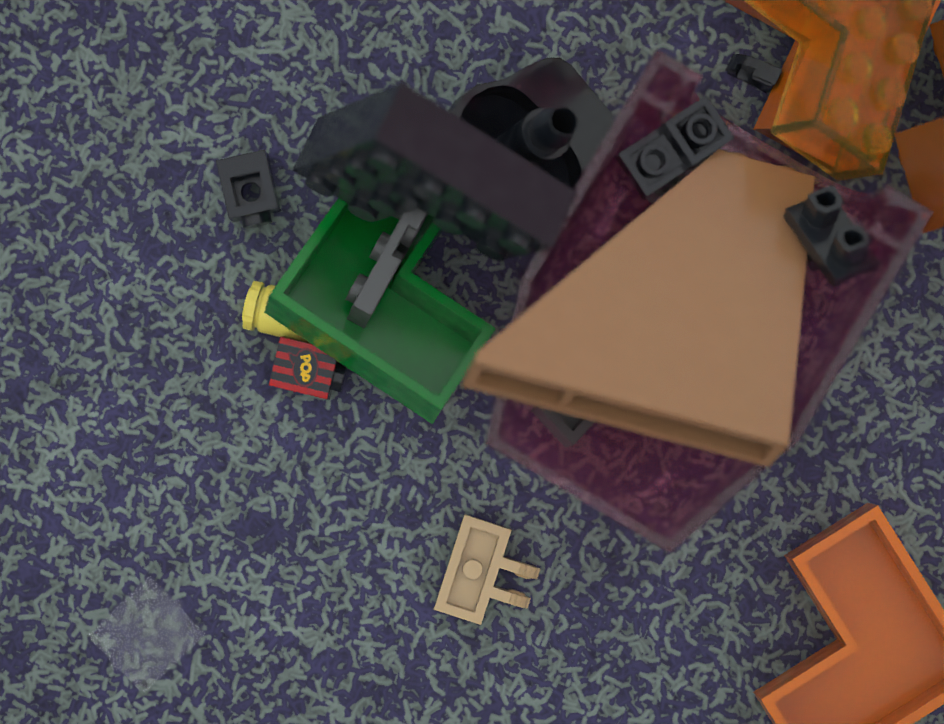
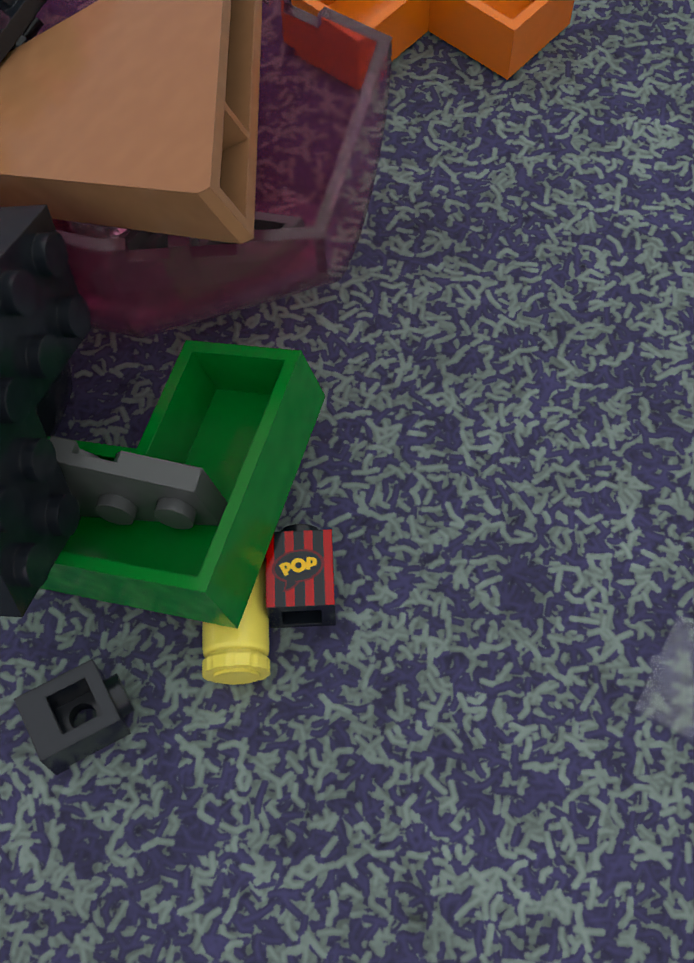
camera: 100 degrees left, 25 degrees down
(474, 569) = (481, 339): tan hinge -> none

